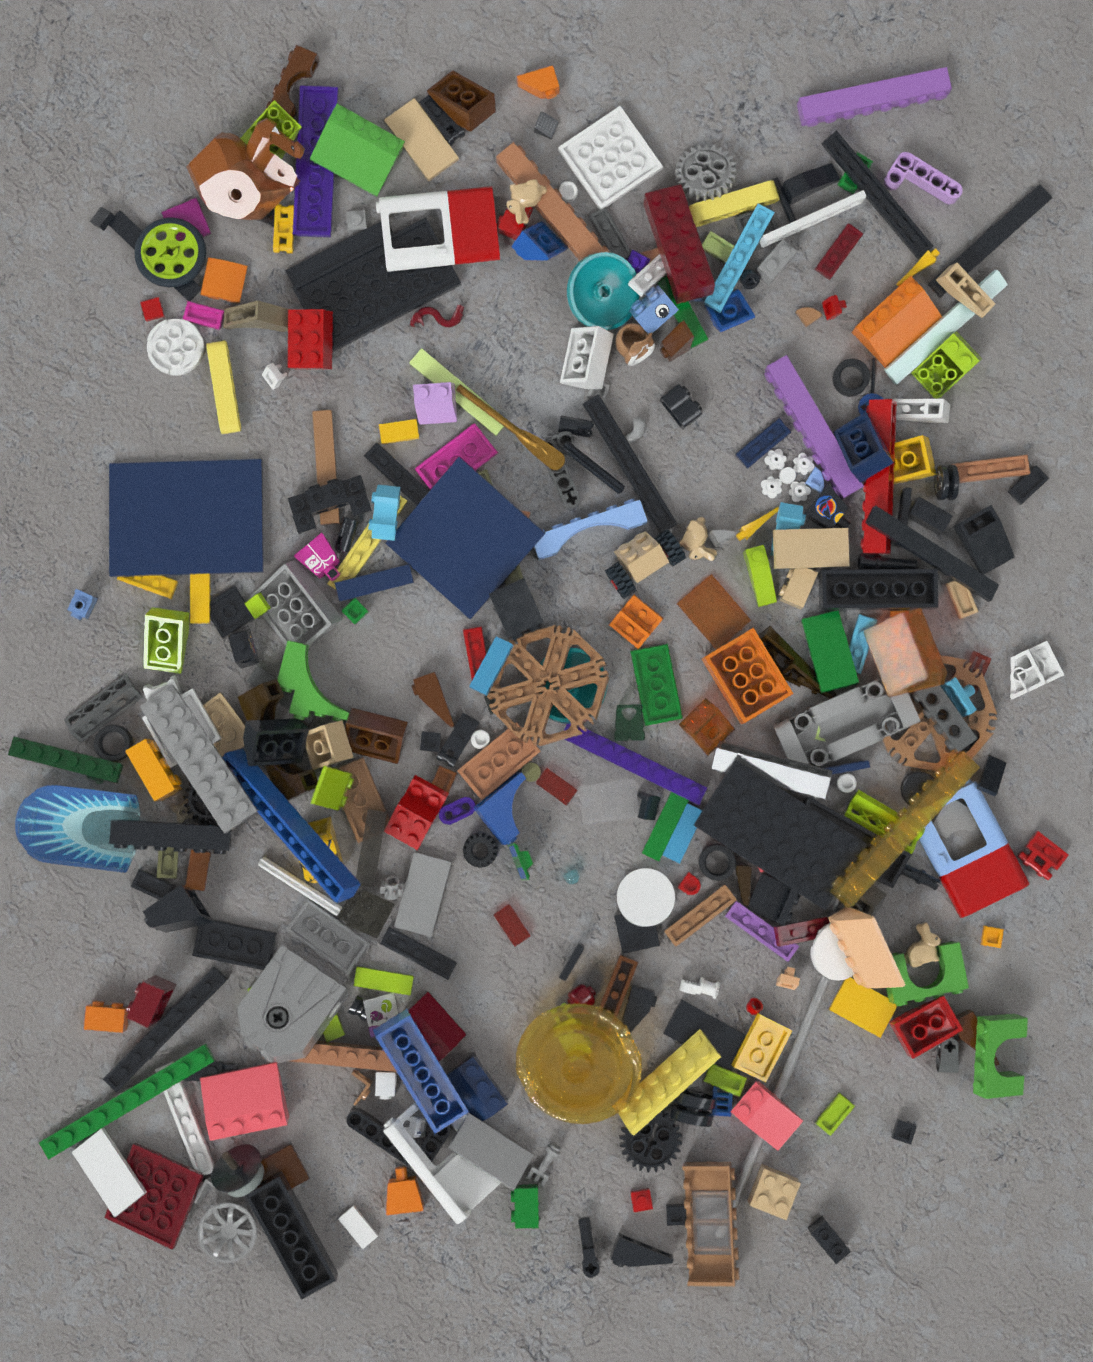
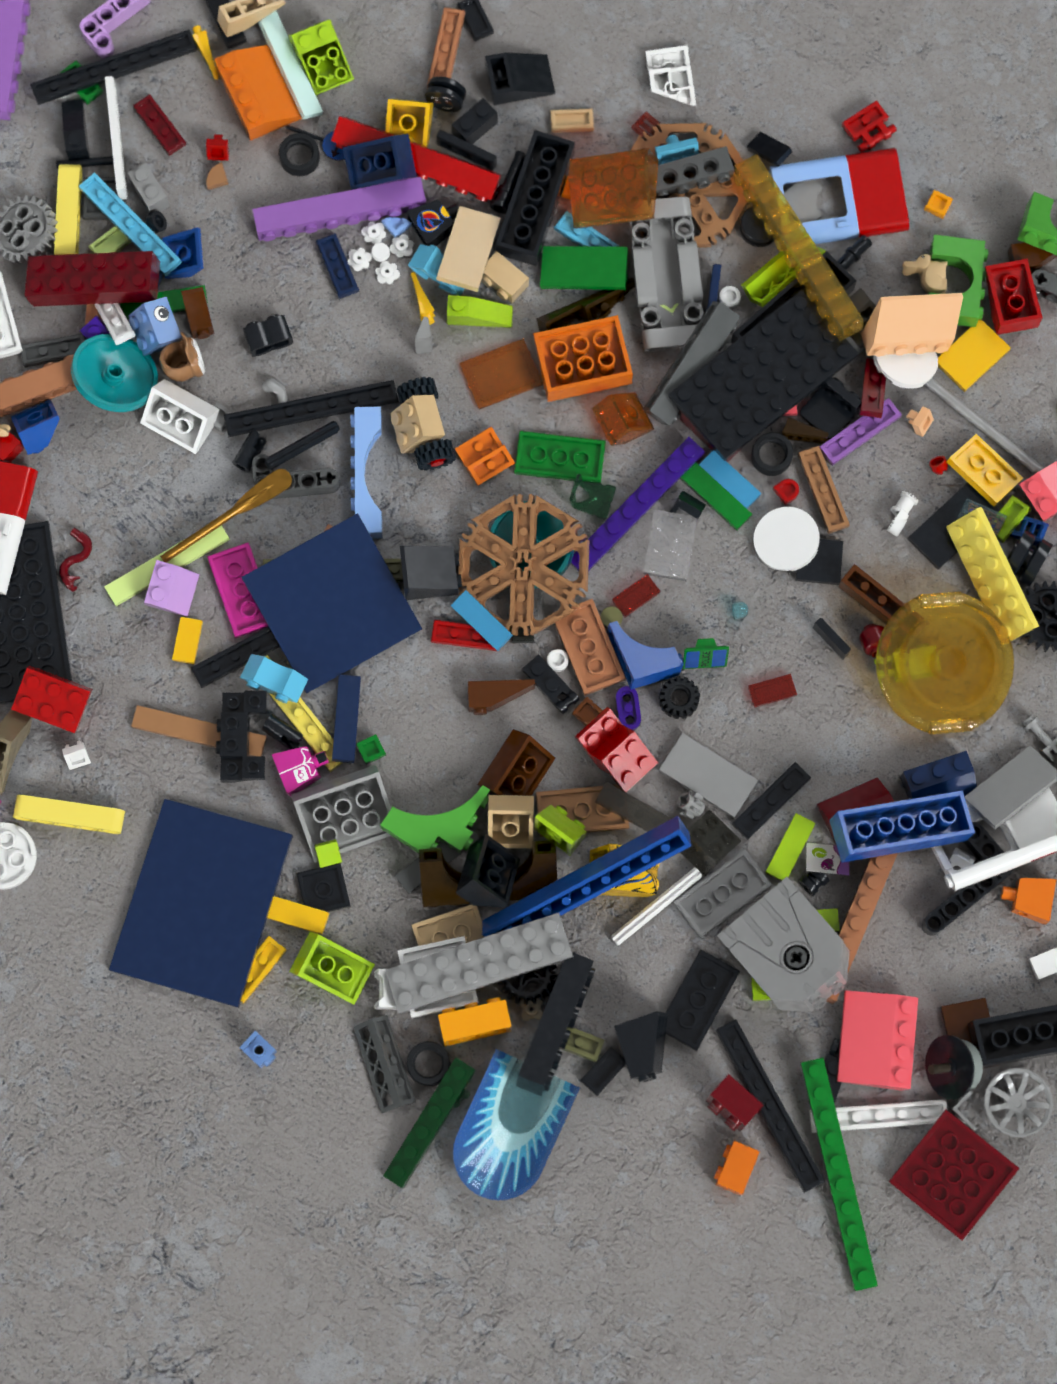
camera: 70 degrees left, 10 degrees down
(109, 1172) = (912, 1218): white tile -> none
(198, 870) = (601, 1013): dark orange tile -> none
(243, 648) = (370, 882): black torso -> none
(365, 1080) = (906, 904): medium nougat bracket -> none
(385, 1084) = (904, 879): white brick -> none
(430, 741) = (542, 713): black plate -> none
(638, 1006) = (900, 581): black slope -> none
(694, 540) = (414, 365): tan animal -> none
(719, 1068) = (995, 518): none -> clear light blue tile
(923, 410) = (360, 93): white slope -> none
(932, 553) = (515, 131): black tile -> none

